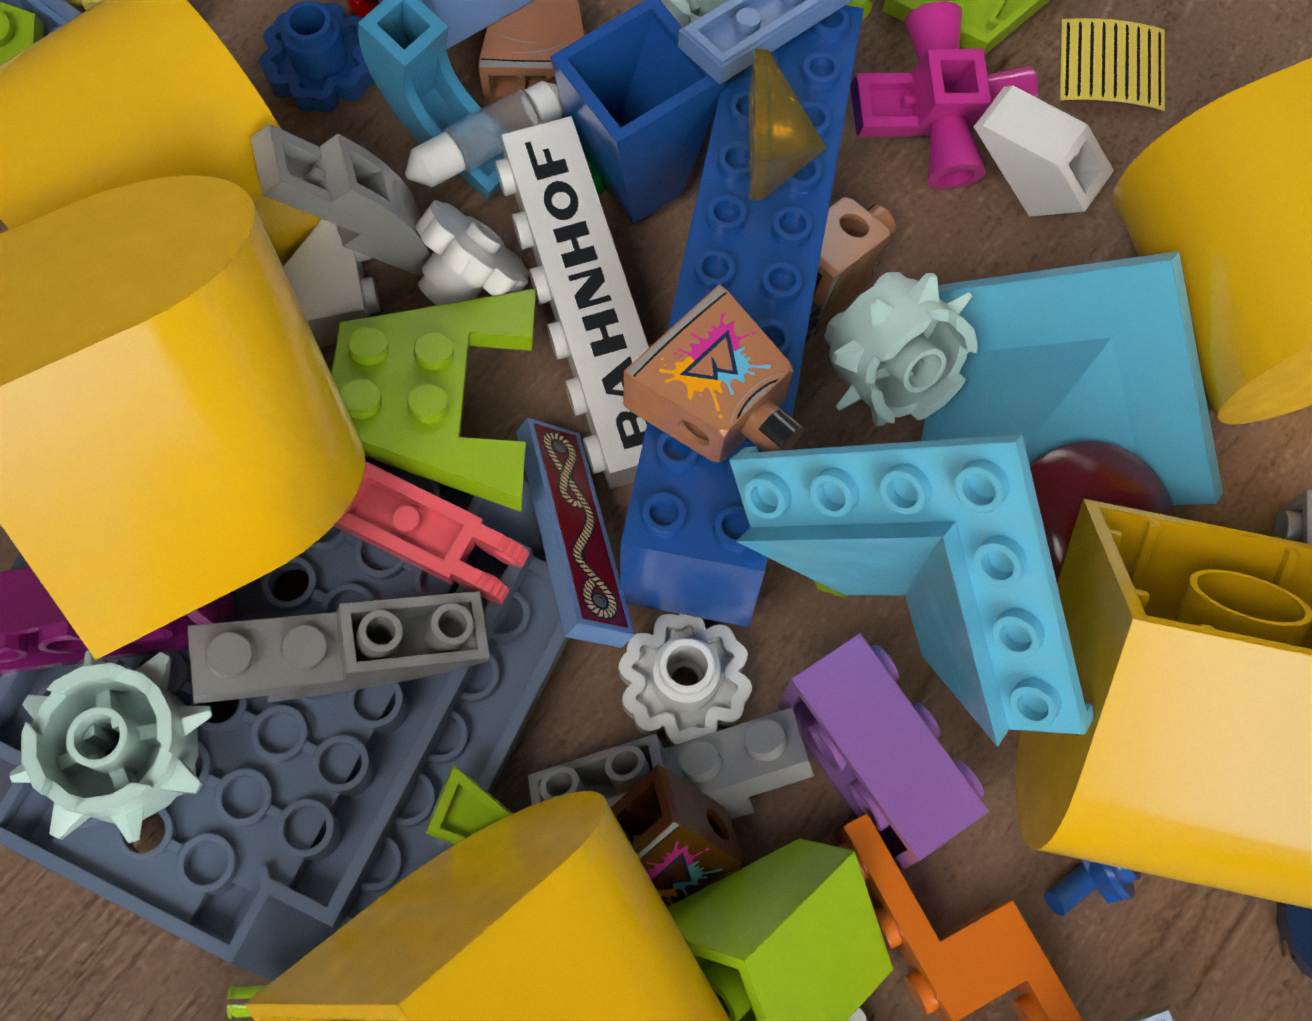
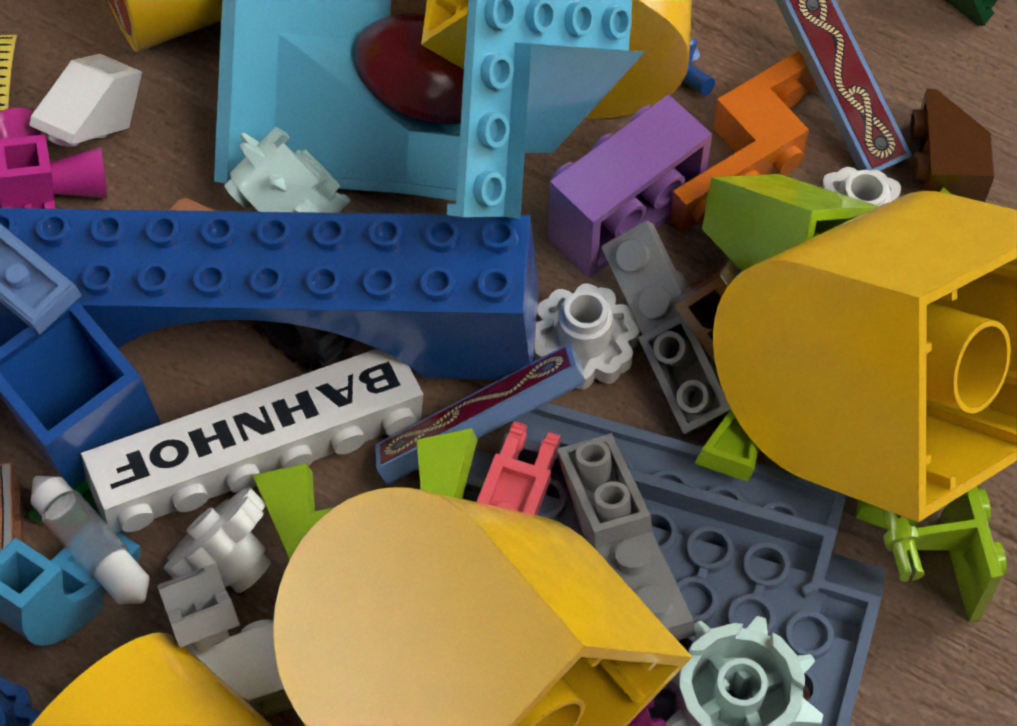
camera: 95 degrees left, 10 degrees down
(714, 382) = (386, 247): nougat torso -> none
(779, 129) = (133, 245): clear yellow slope -> none

